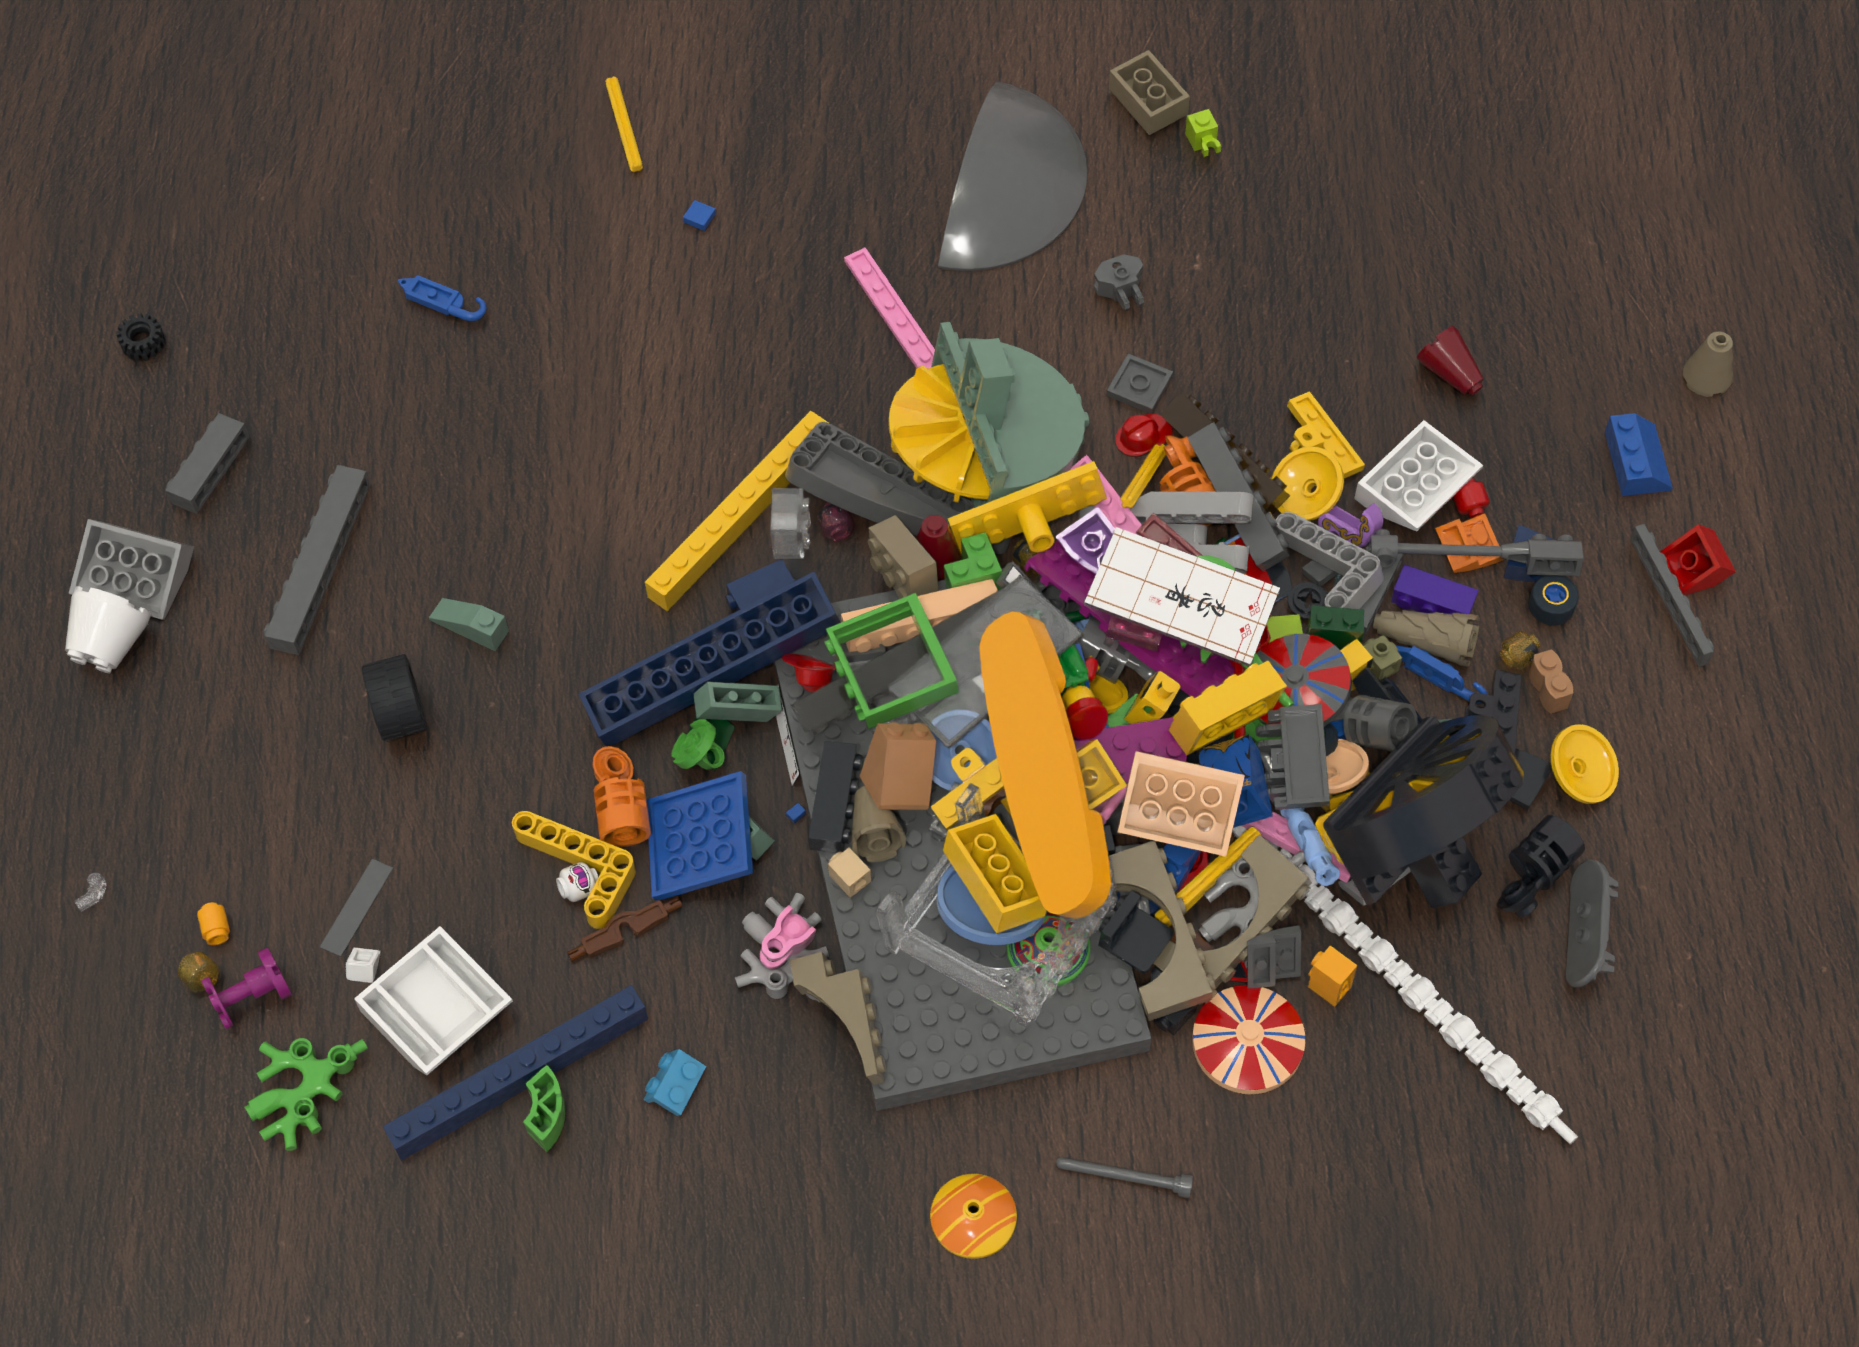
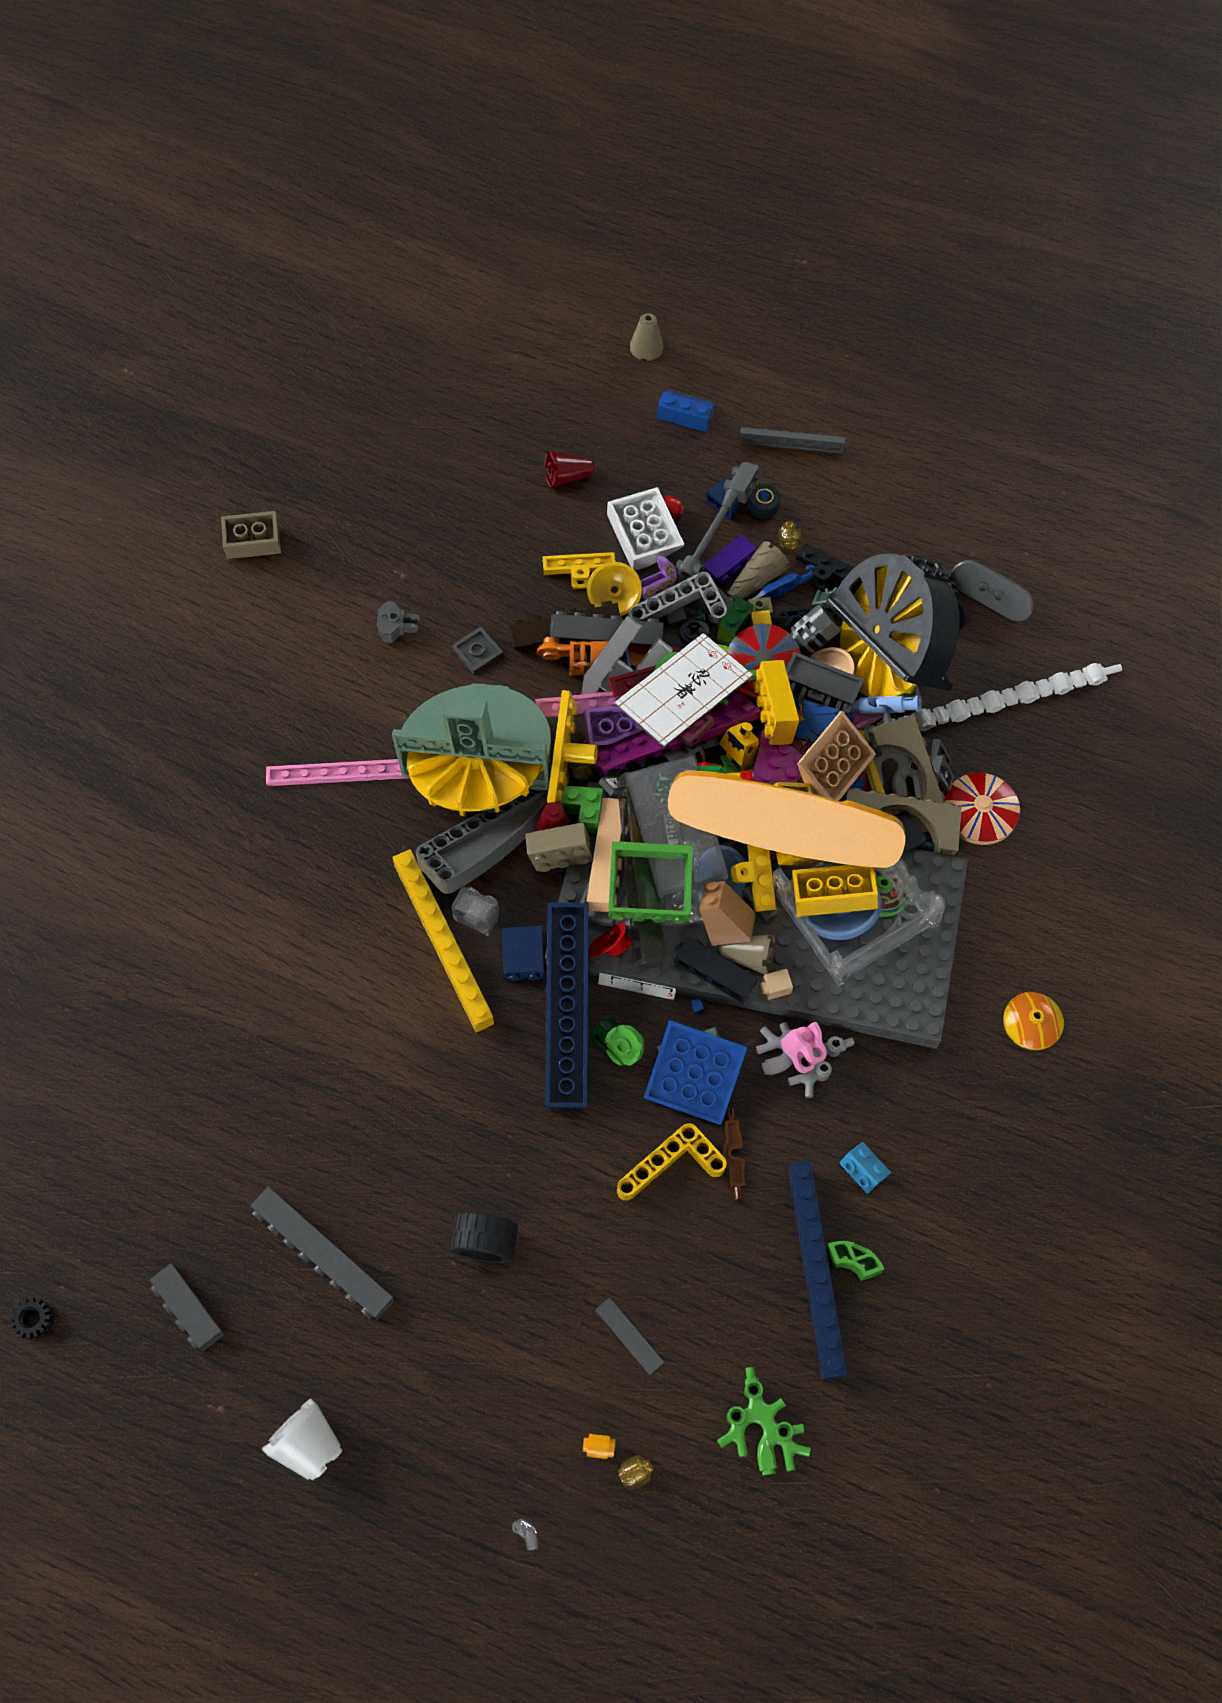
camera: 70 degrees left, 5 degrees up
(131, 566) = (251, 1403): light grey slope -> none
(256, 982) = (669, 1429): magenta piece -> none
(362, 965) = (679, 1347): white slope -> none
(432, 1001) = (742, 1305): white slope -> none
(439, 298) = (133, 1074): blue plate -> none
(471, 621) = (434, 1162): sand green slope -> none
(576, 881) = (687, 1170): white head -> none
(619, 799) = (646, 1116): orange cylinder -> none
(624, 124) = (53, 880): yellow axle -> none
(699, 215) = (169, 863): blue tile -> none
(737, 702) = (605, 1003): sand green brick -> none
(835, 522) = (485, 883): clear pink head -> none
(849, 999) = (870, 1025): dark tan arch -> none
(1014, 184) = (273, 646): dark grey brick -> none
(1142, 433) = (517, 667): red piece -> none
(1143, 476) = (562, 676): yellow axle -> none
(1179, 1184) = (1063, 890): dark grey piece -> none
(1202, 132) = (302, 520): lime brick -> none
(1331, 975) = (967, 740): light orange brick -> none
(1470, 532) = (696, 524): orange slope -> none
(1552, 683) = (819, 529): medium nougat brick -> none
(1584, 764) = (886, 538): yellow dish -> none
(1698, 560) = (776, 414): red slope -> none

